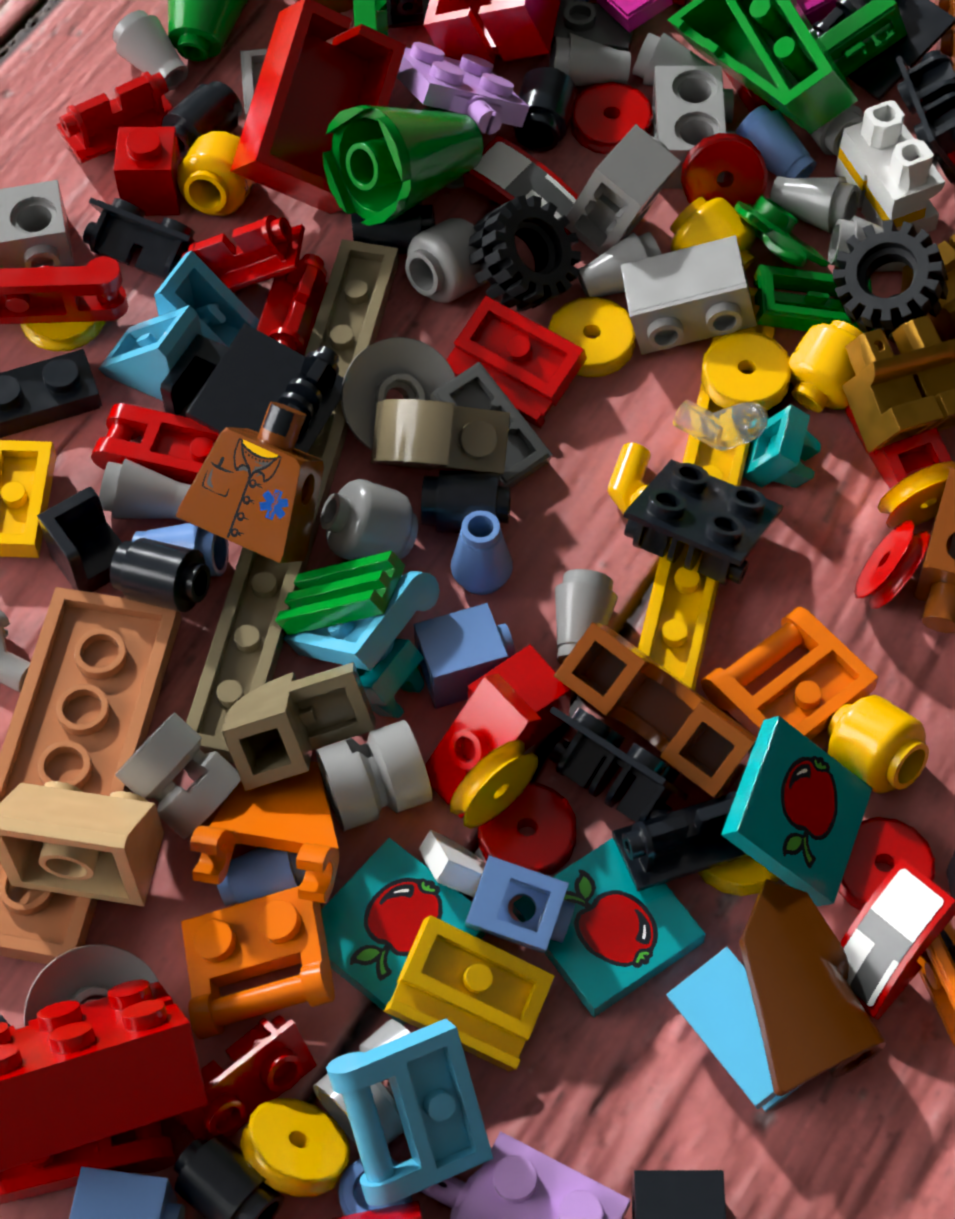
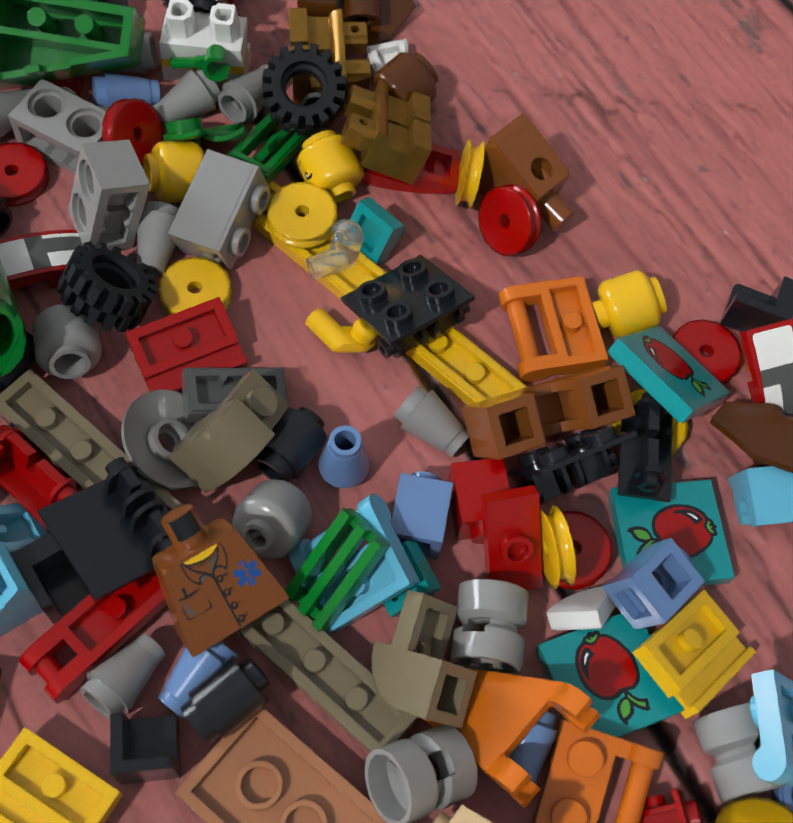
camera: 70 degrees left, 5 degrees up
(856, 184) = (211, 70): none -> green hand

